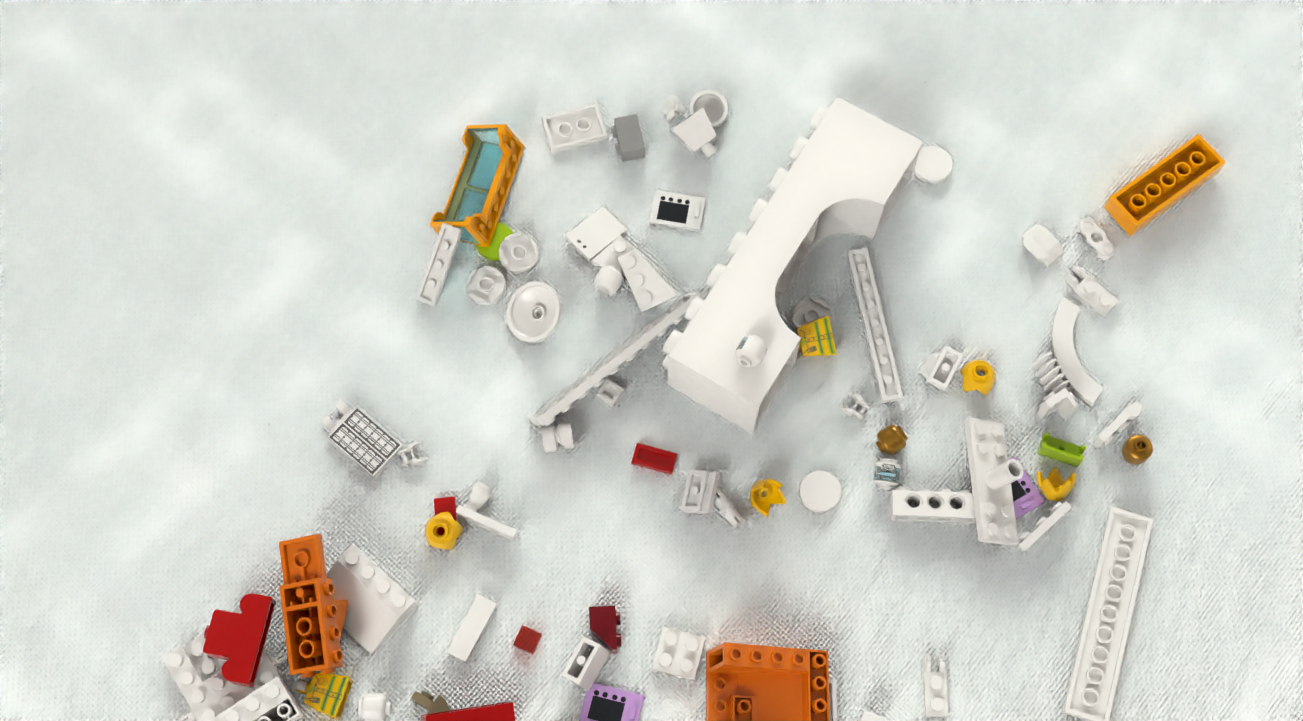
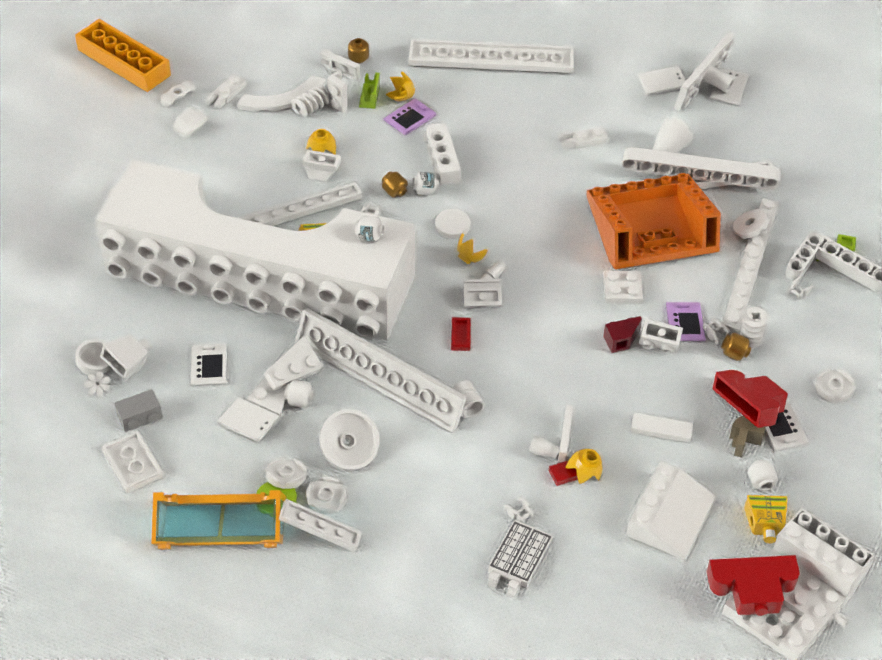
camera: 105 degrees left, 20 degrees down
(309, 610) = (705, 527): orange wedge -> none
(527, 639) = (654, 387): clear red tile -> none
(992, 481) = (411, 117): white plate -> none
(1043, 525) = (436, 89): white wing -> none

